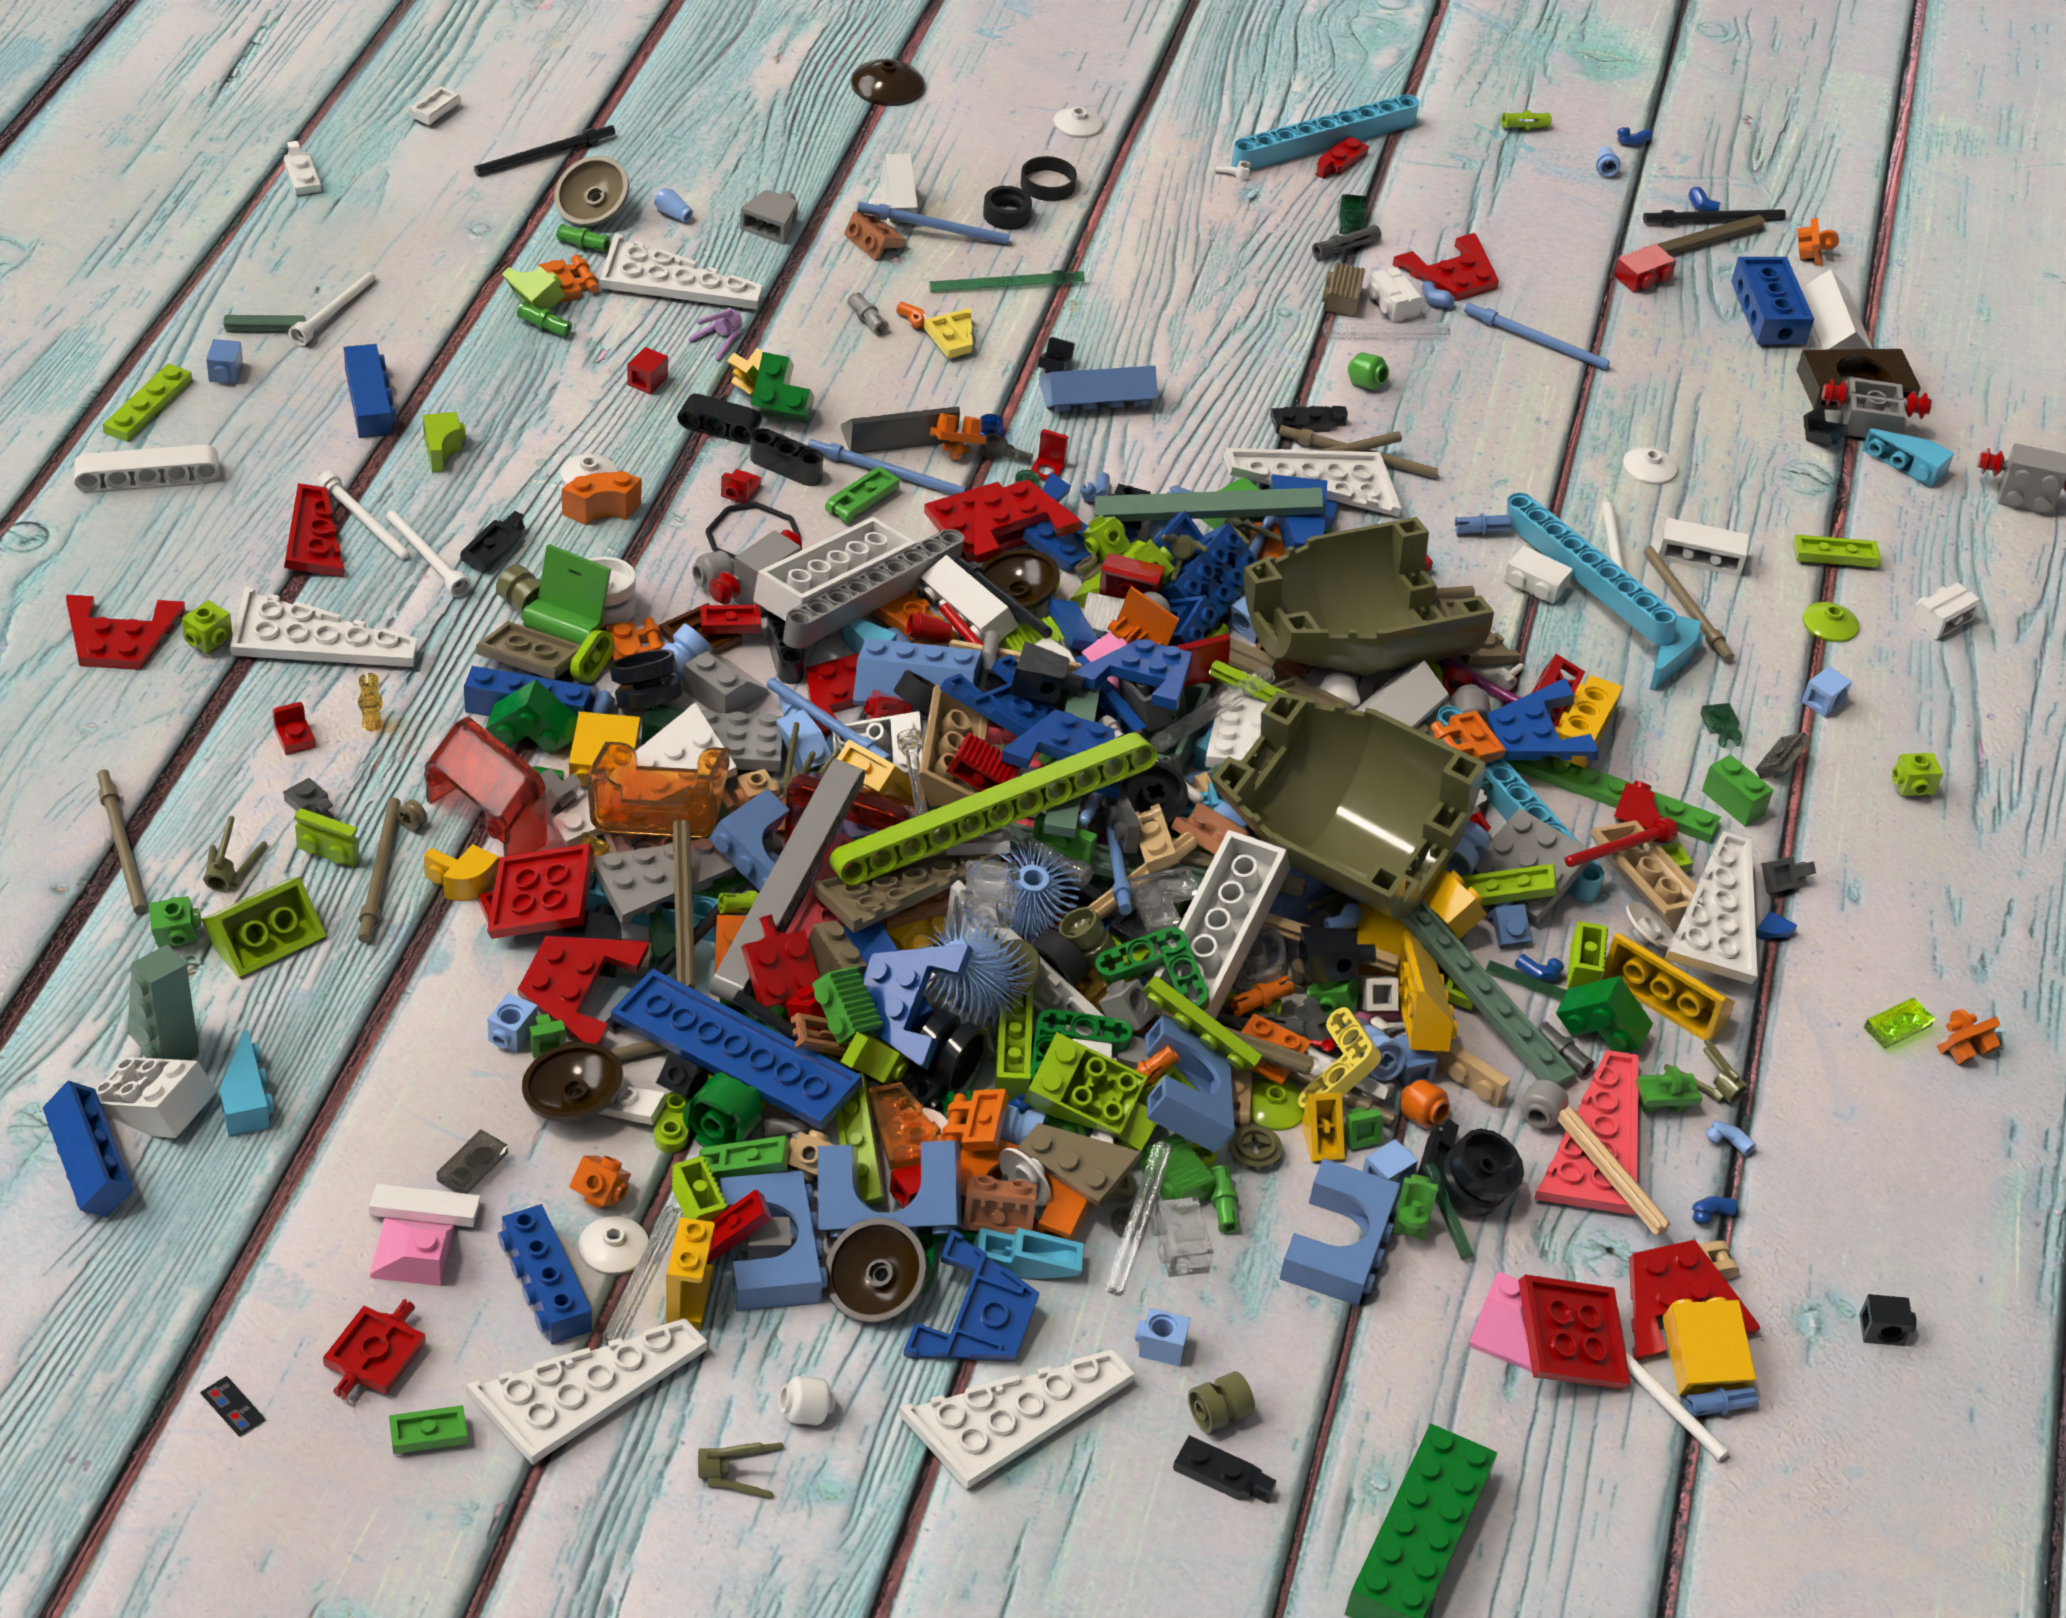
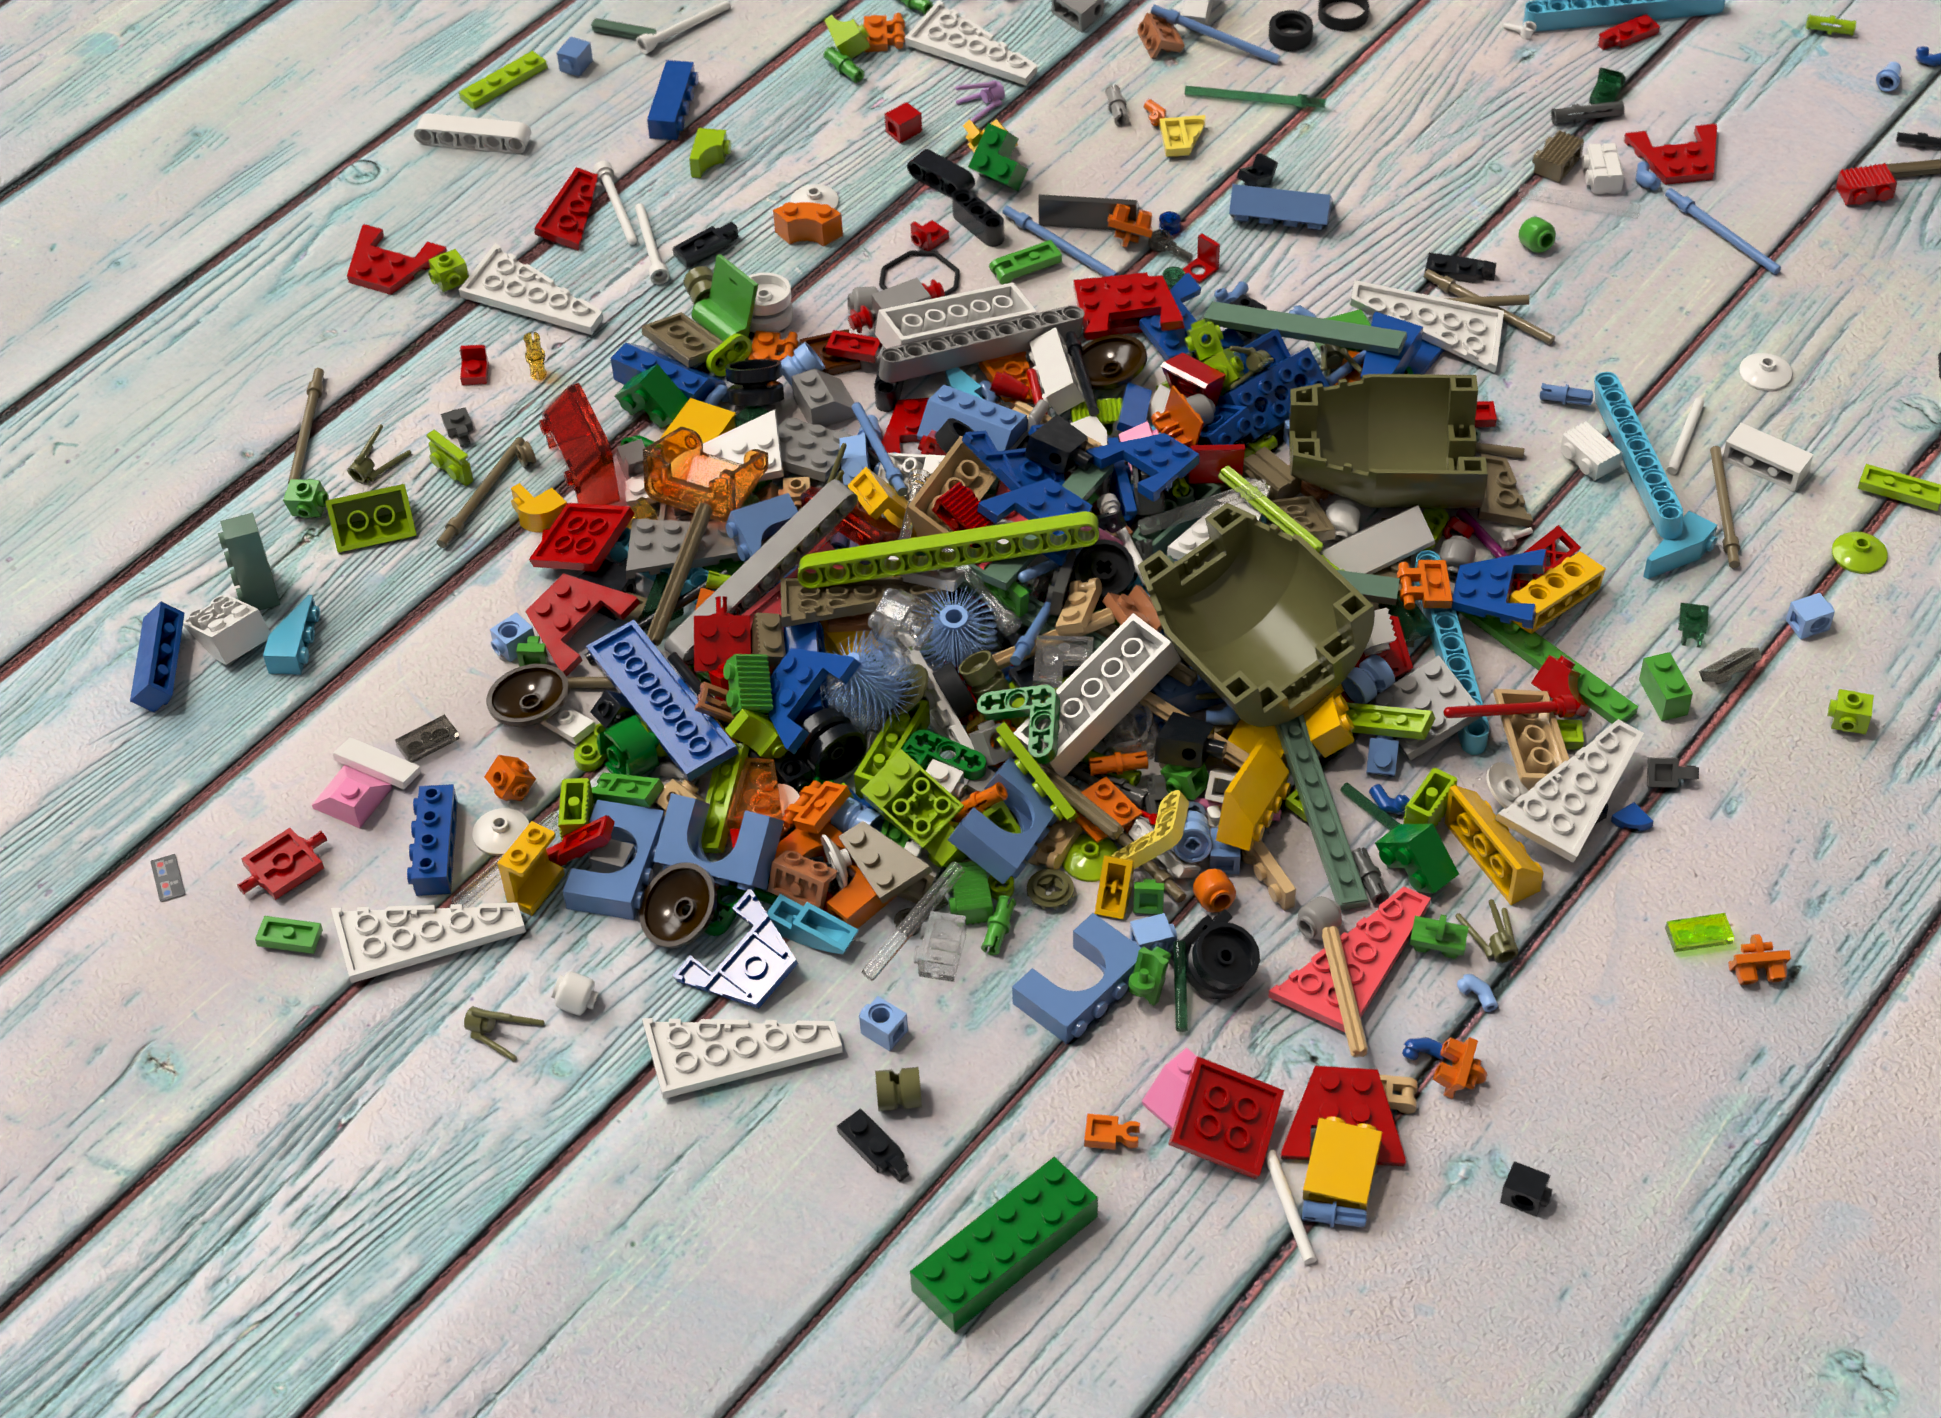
camera: 30 degrees right, 5 degrees up
(1454, 1385) = (1104, 1132): none -> orange plate
(1761, 1218) = (1464, 1069): none -> orange hips

